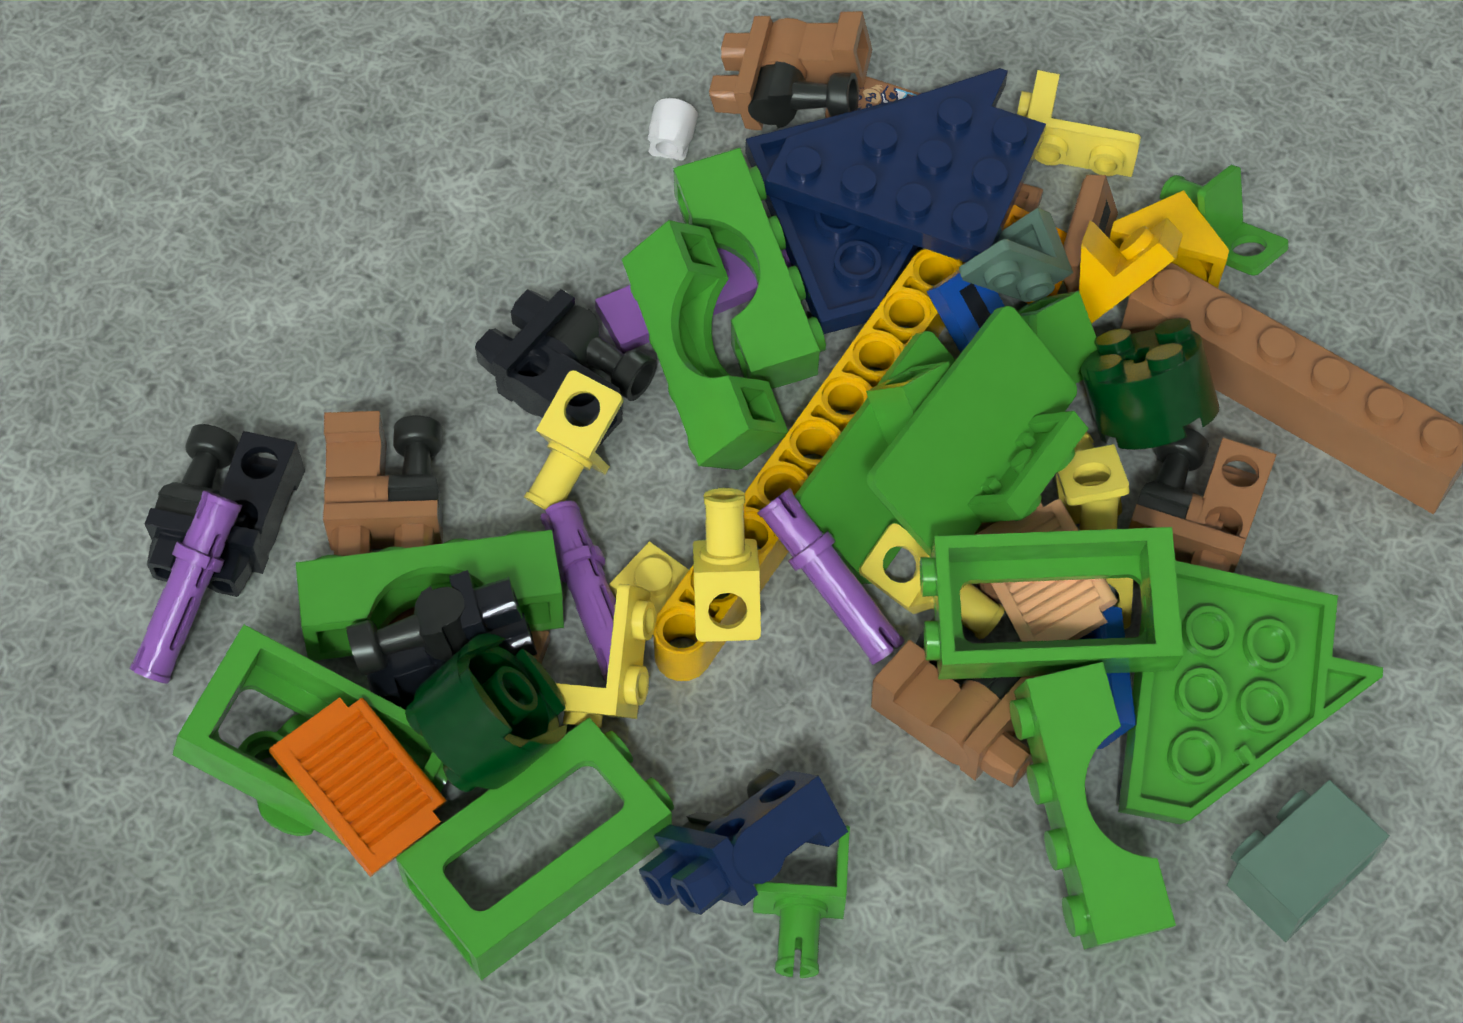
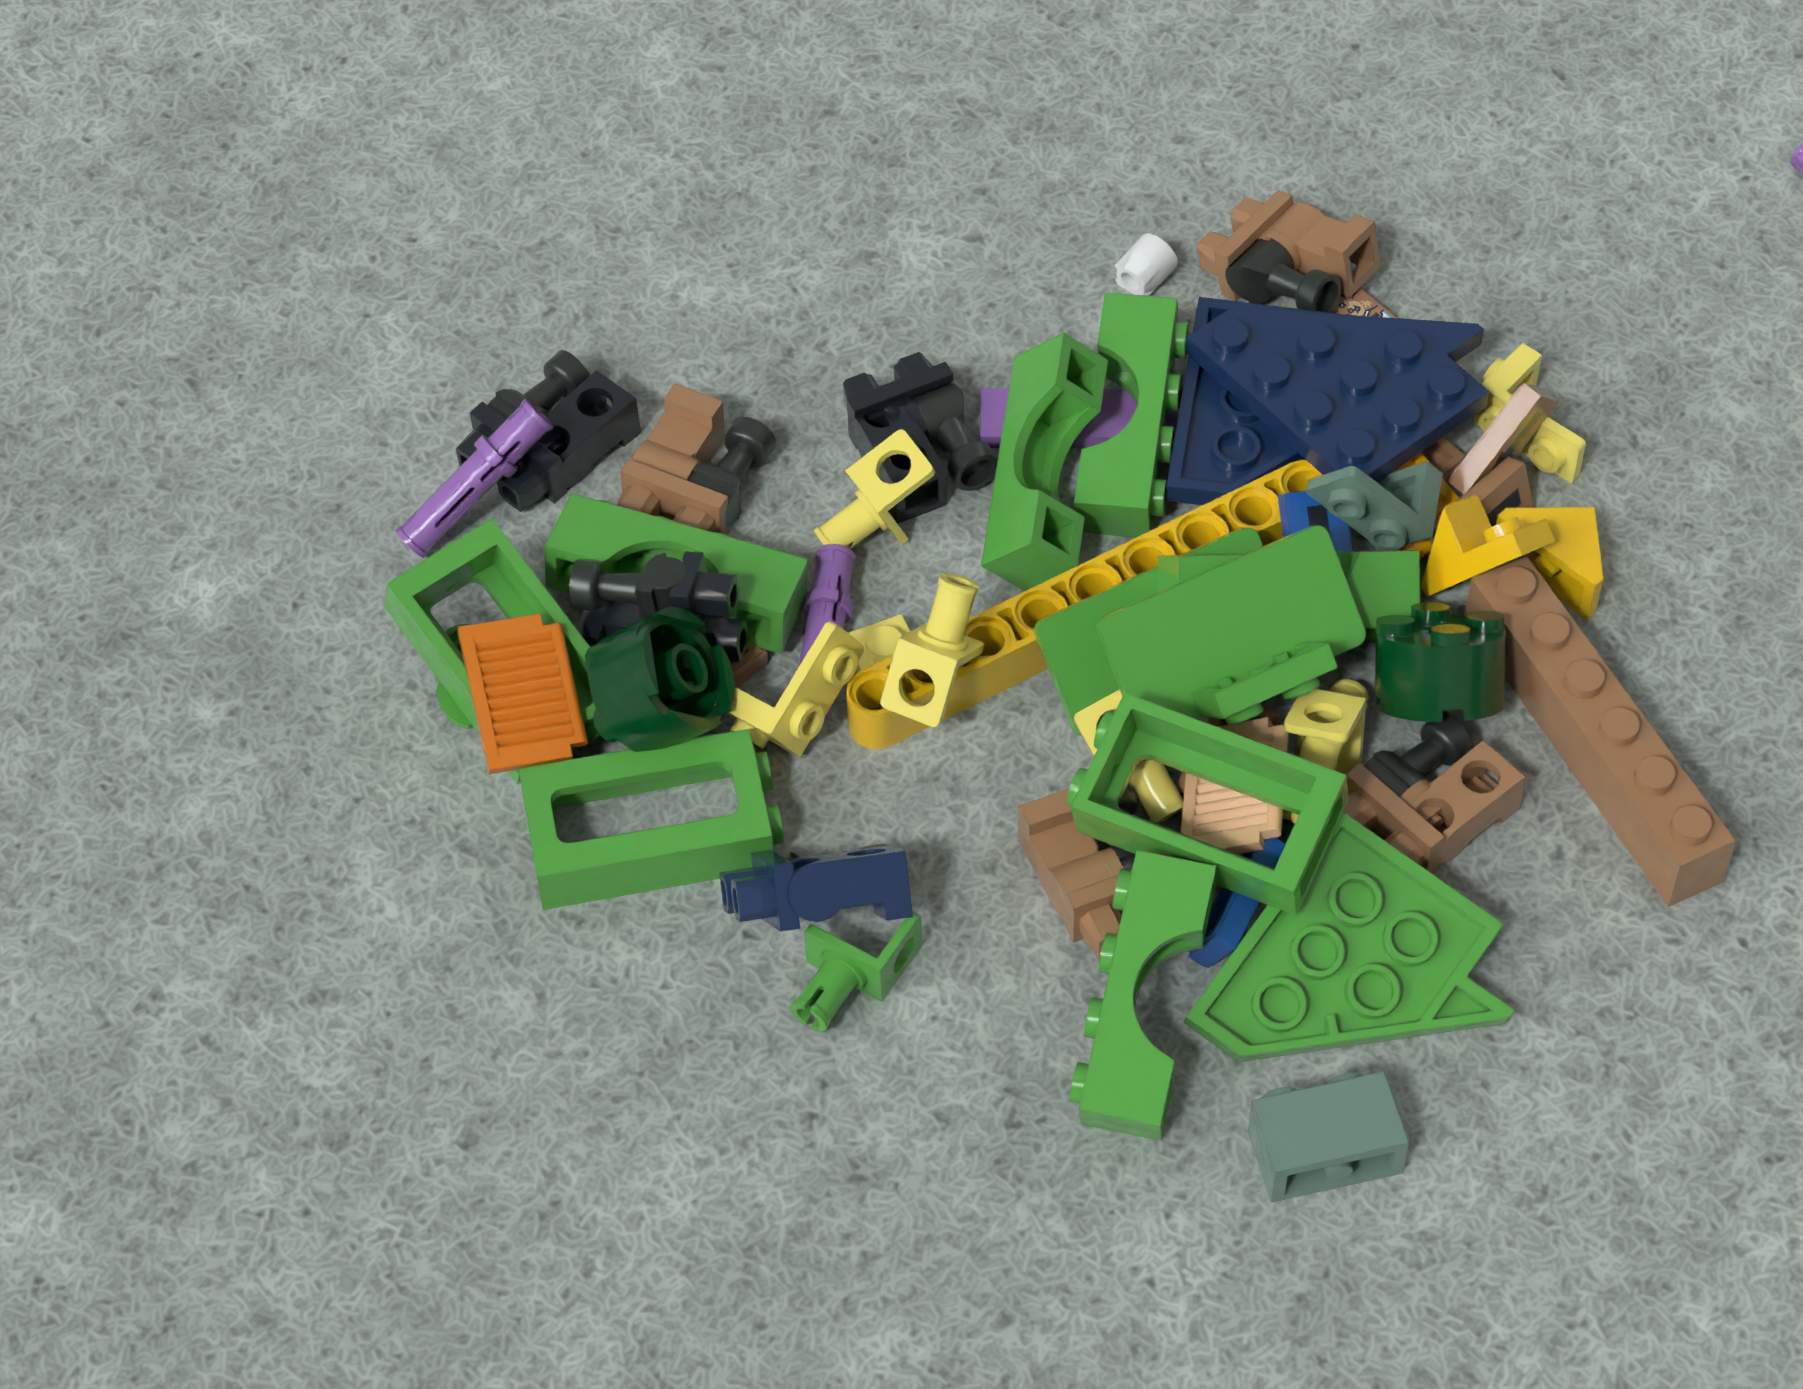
camera: 30 degrees right, 5 degrees down
(830, 575) = (1031, 679): medium lavender pin -> none
(1076, 162) = (1505, 435): none -> tile
(1223, 209) = (1628, 555): bright green bracket -> none

